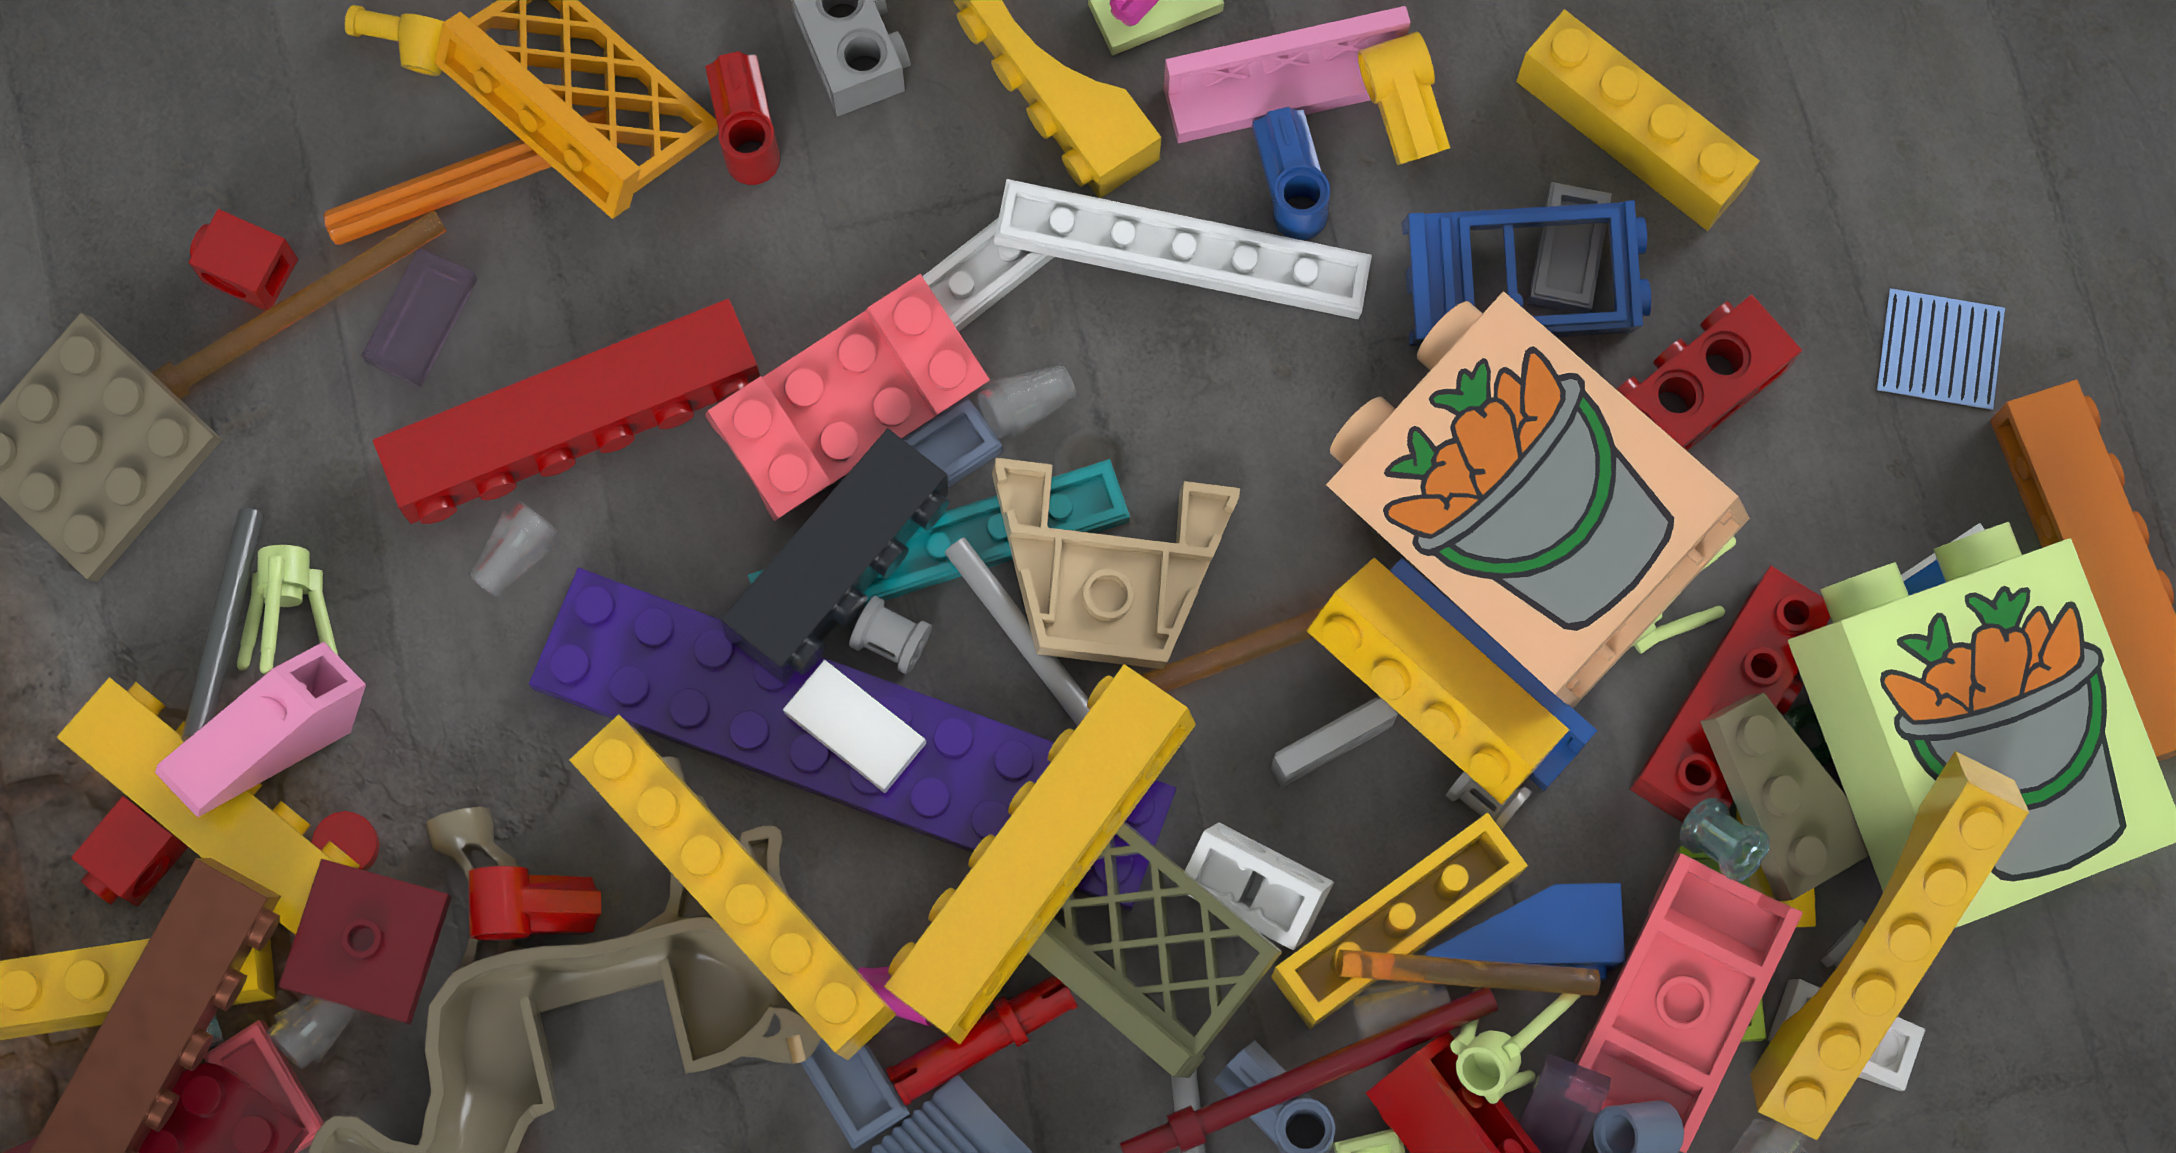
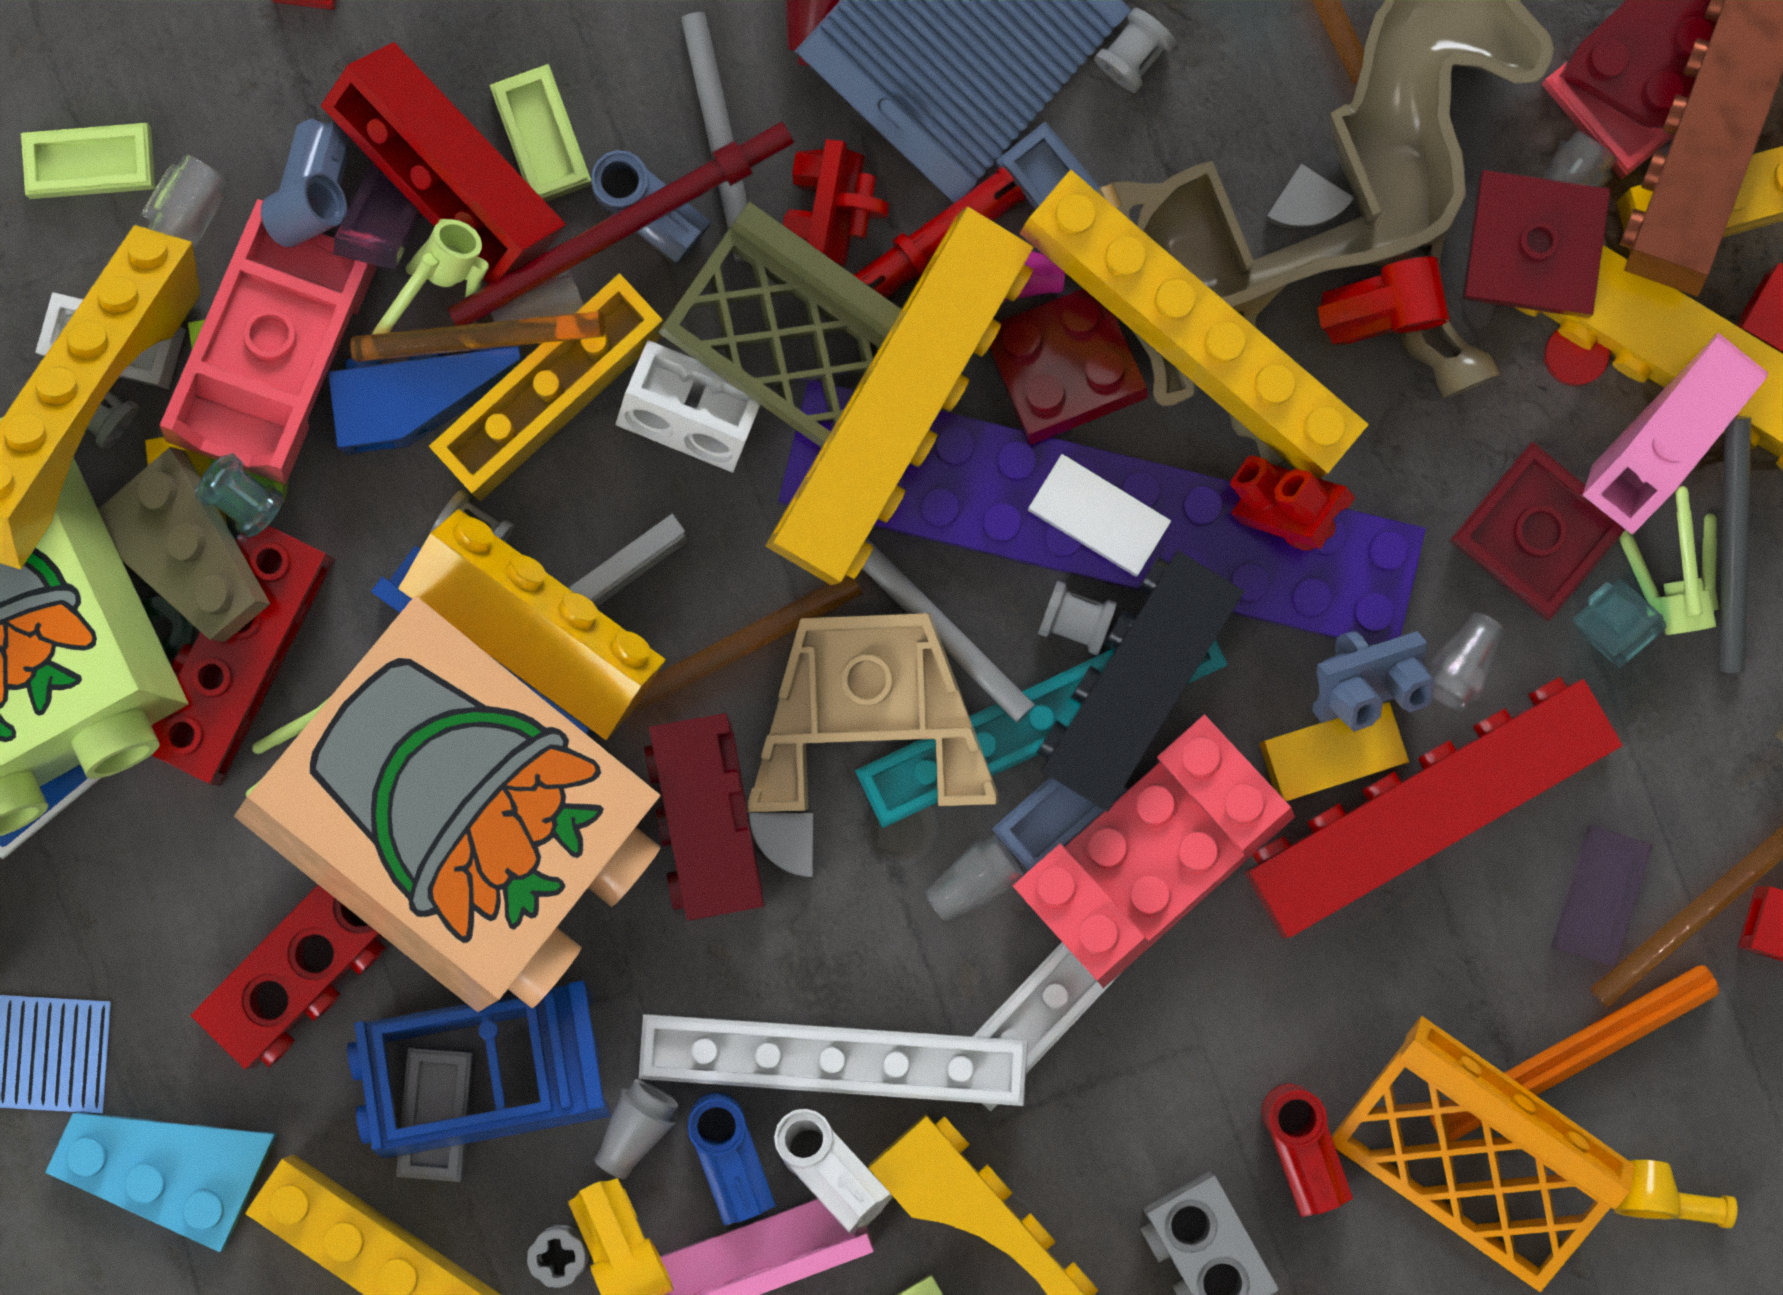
camera: 175 degrees right, 10 degrees up
(352, 567) = (1619, 622): none -> clear light blue tile
(419, 667) = (1537, 532): none -> dark red plate
(593, 1032) = (1308, 201): none -> light grey tile
(611, 545) = (1367, 675): none -> sand blue hips
(656, 477) = (1332, 754): none -> yellow slope
(661, 705) = (1288, 502): none -> red hips
(867, 885) = (1065, 365): none -> dark red plate
(1076, 1082) = (841, 201): none -> red hips
(1193, 137) = (833, 1172): none -> white piece
(1205, 458) = (785, 840): none -> light grey tile
(1282, 484) = (704, 817): none -> dark red wedge
(1376, 213) = (636, 1126): none -> light grey cone
(1478, 92) = (547, 1271): none -> light grey bush
(1834, 225) = (165, 1171): none -> medium azure wing

